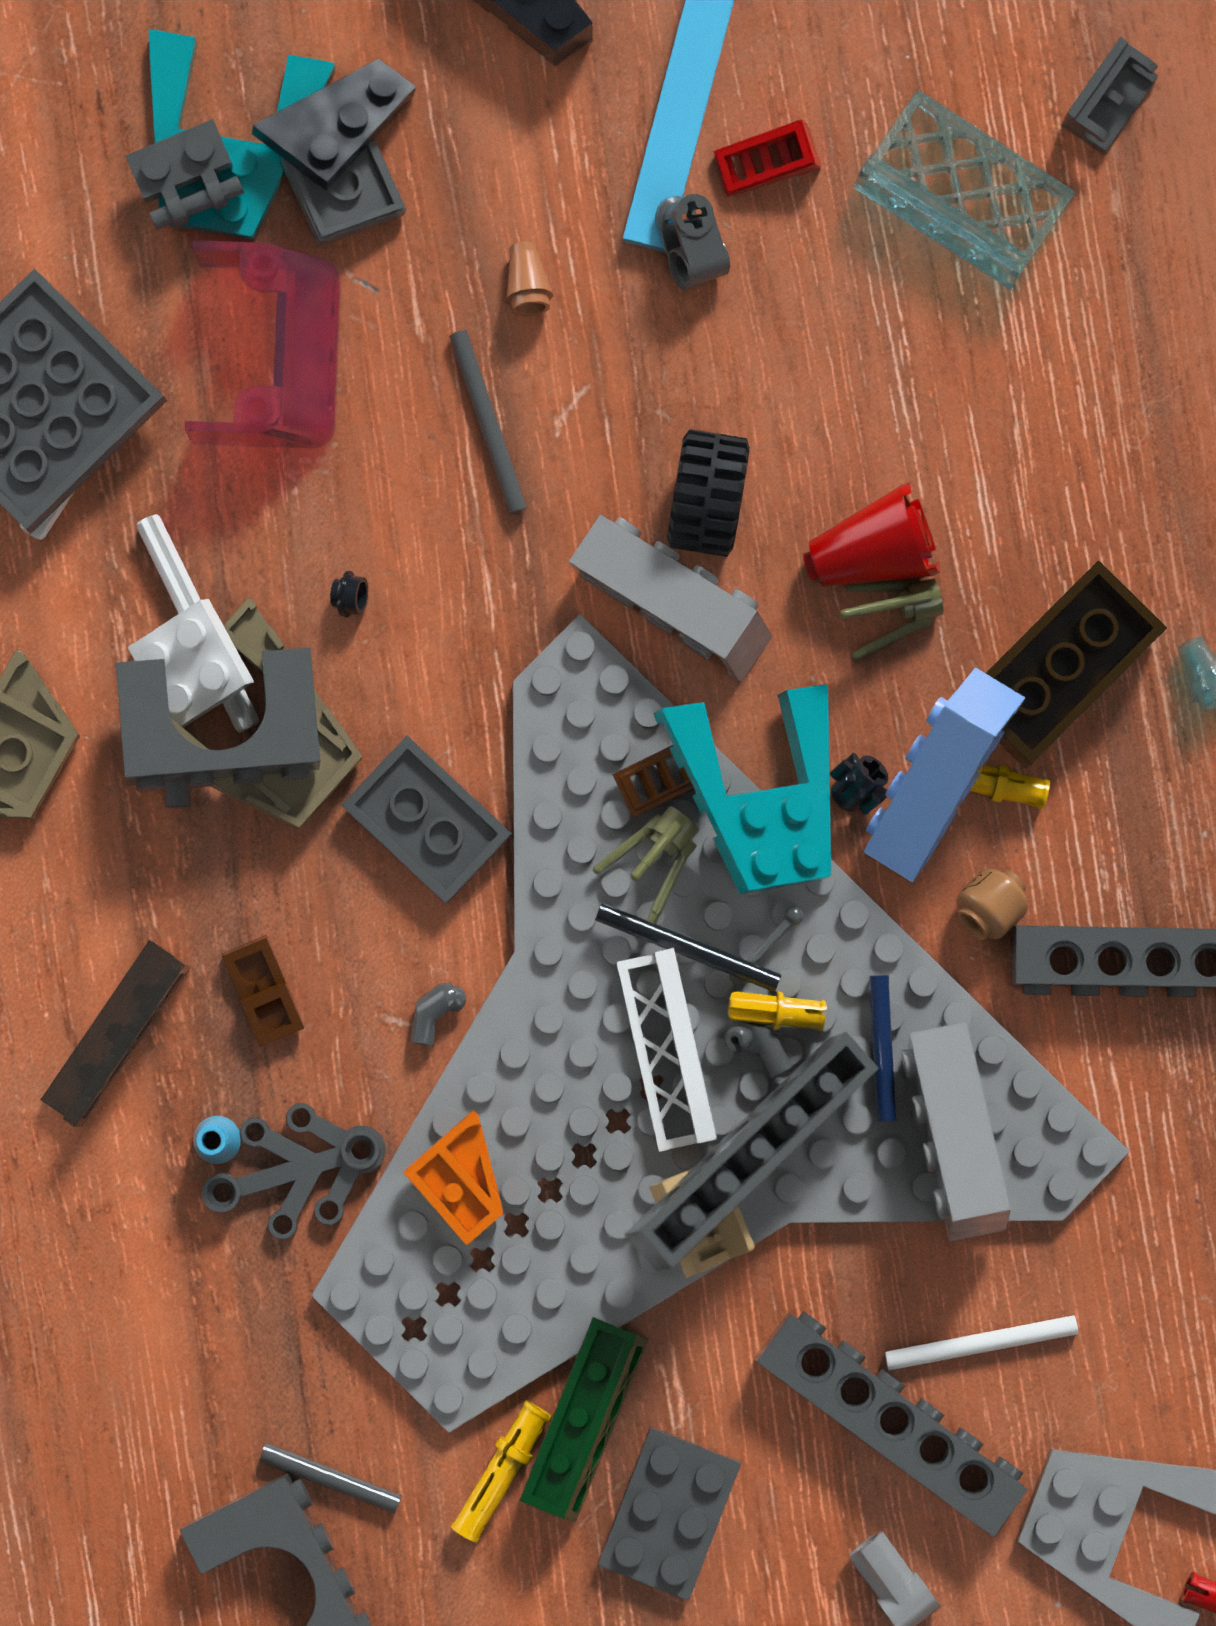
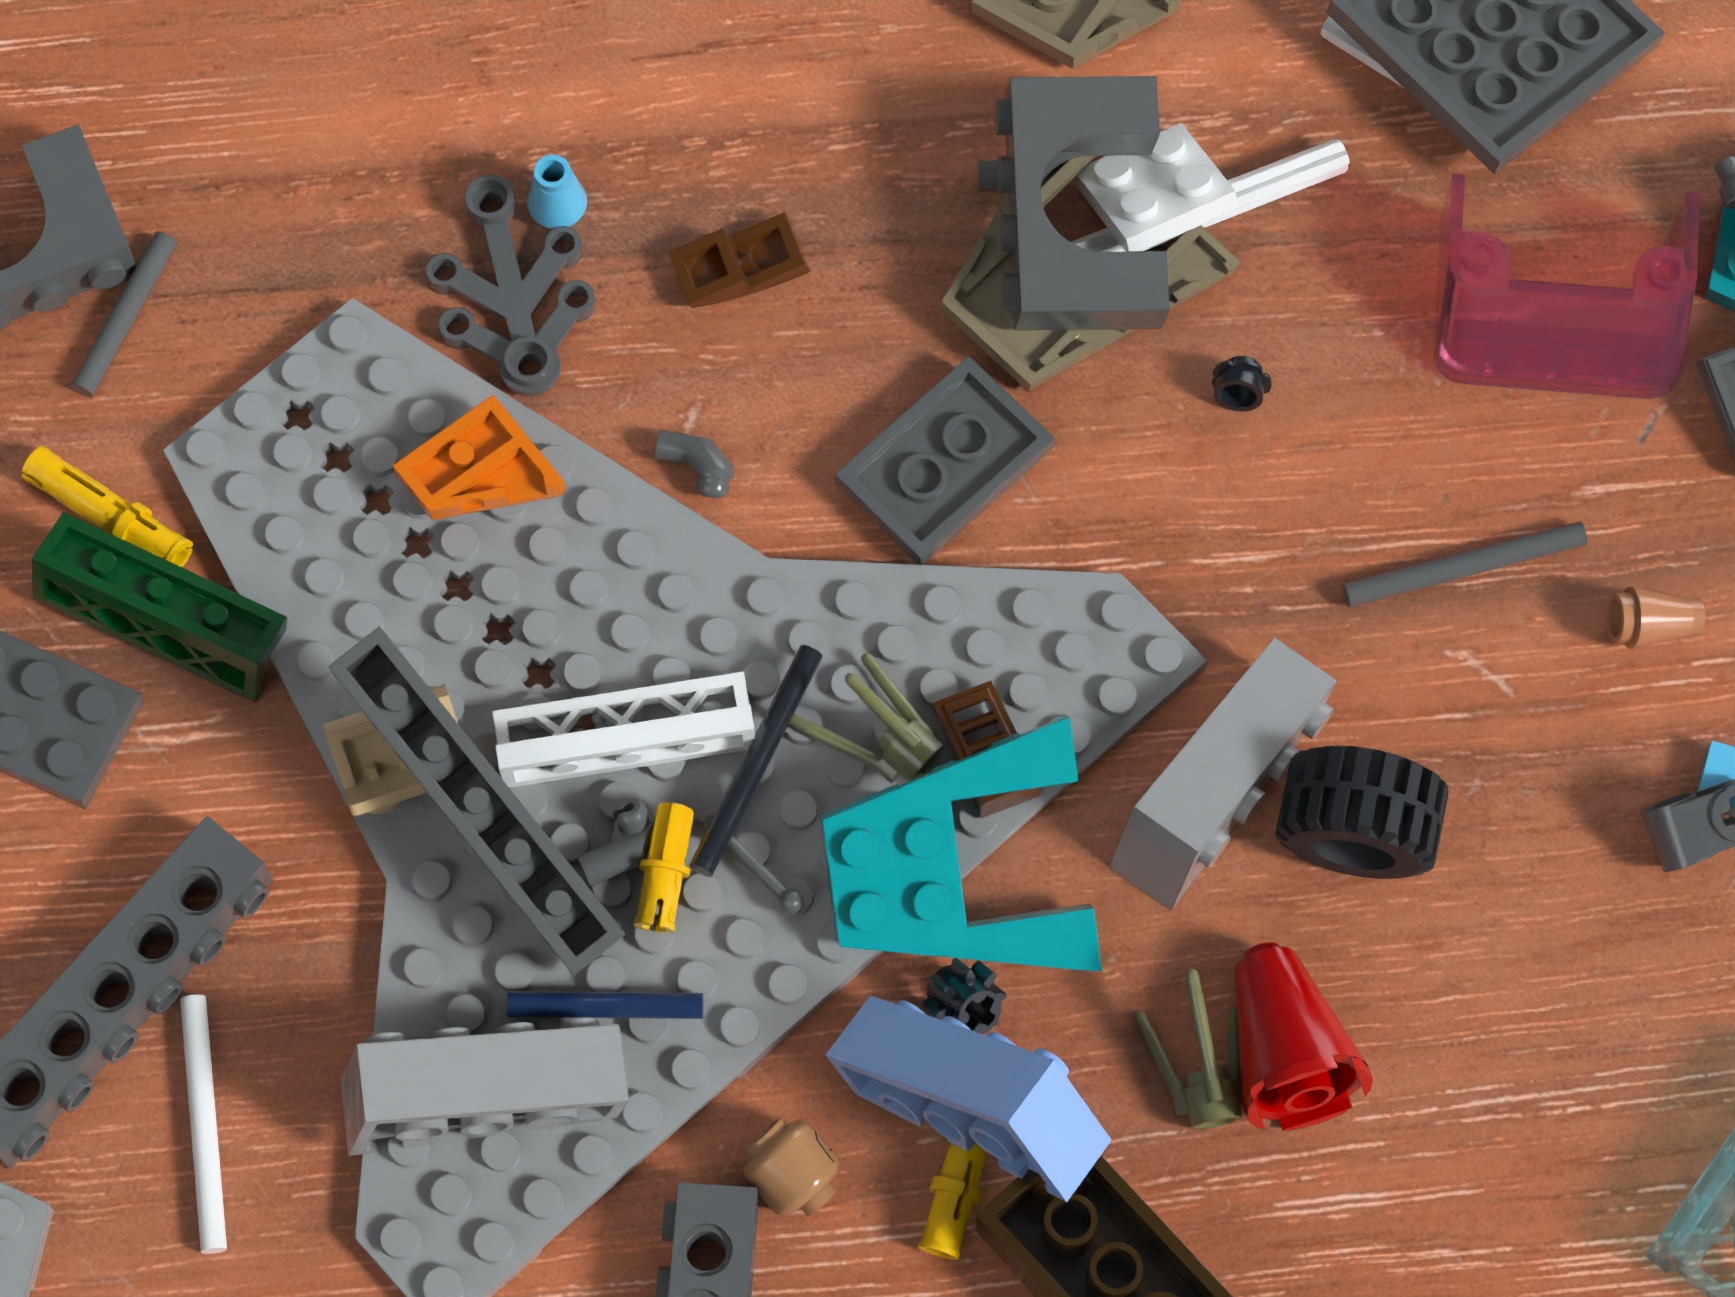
camera: 95 degrees right, 15 degrees down
(115, 1034) = (696, 92): clear smoke fence -> none

